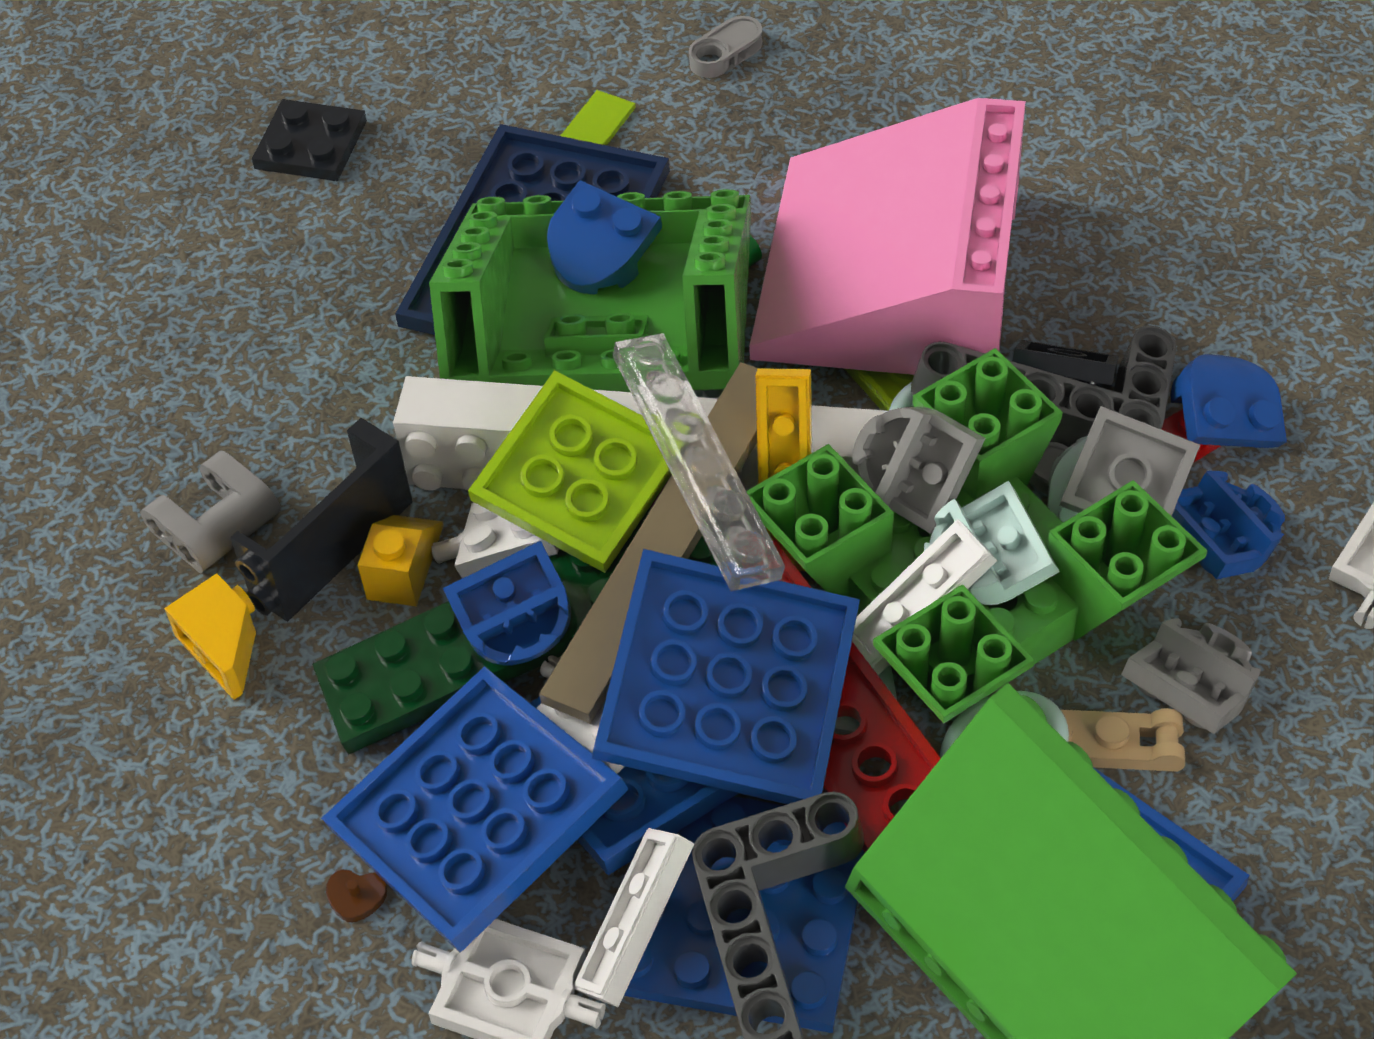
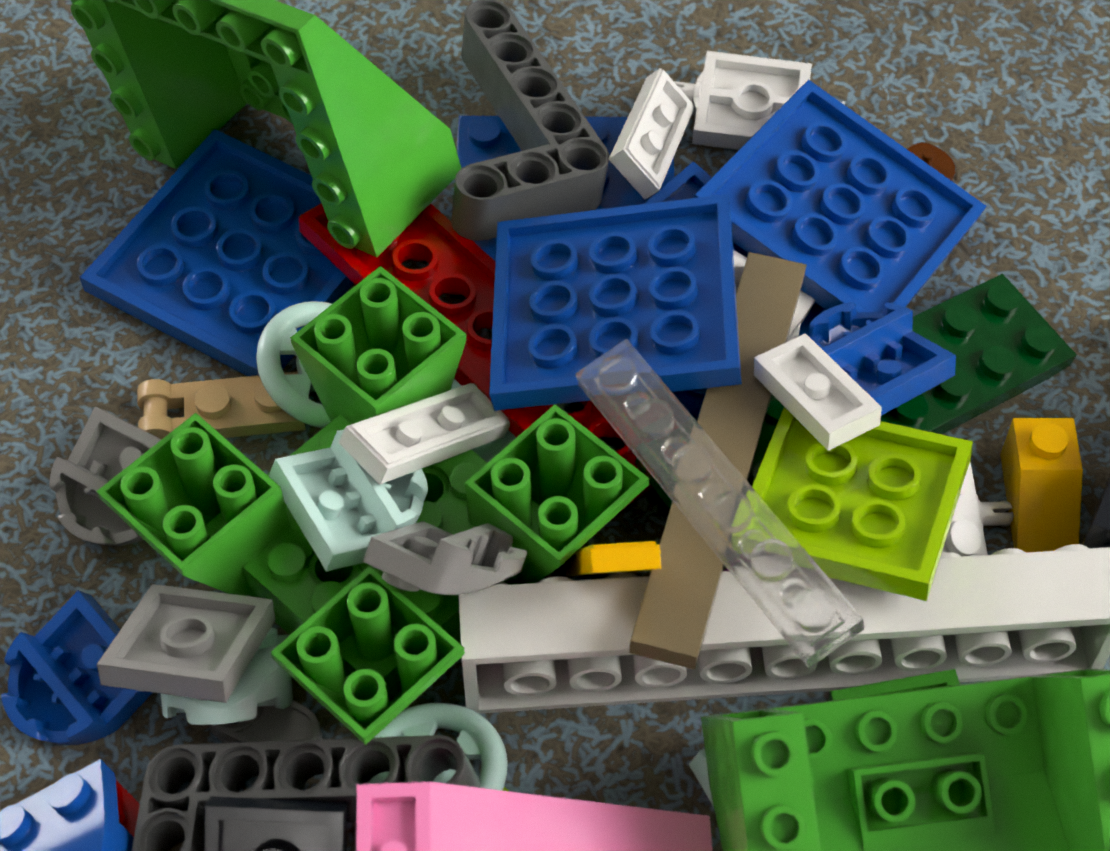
camera: 165 degrees right, 5 degrees up
(581, 540) = (817, 391): none -> white plate

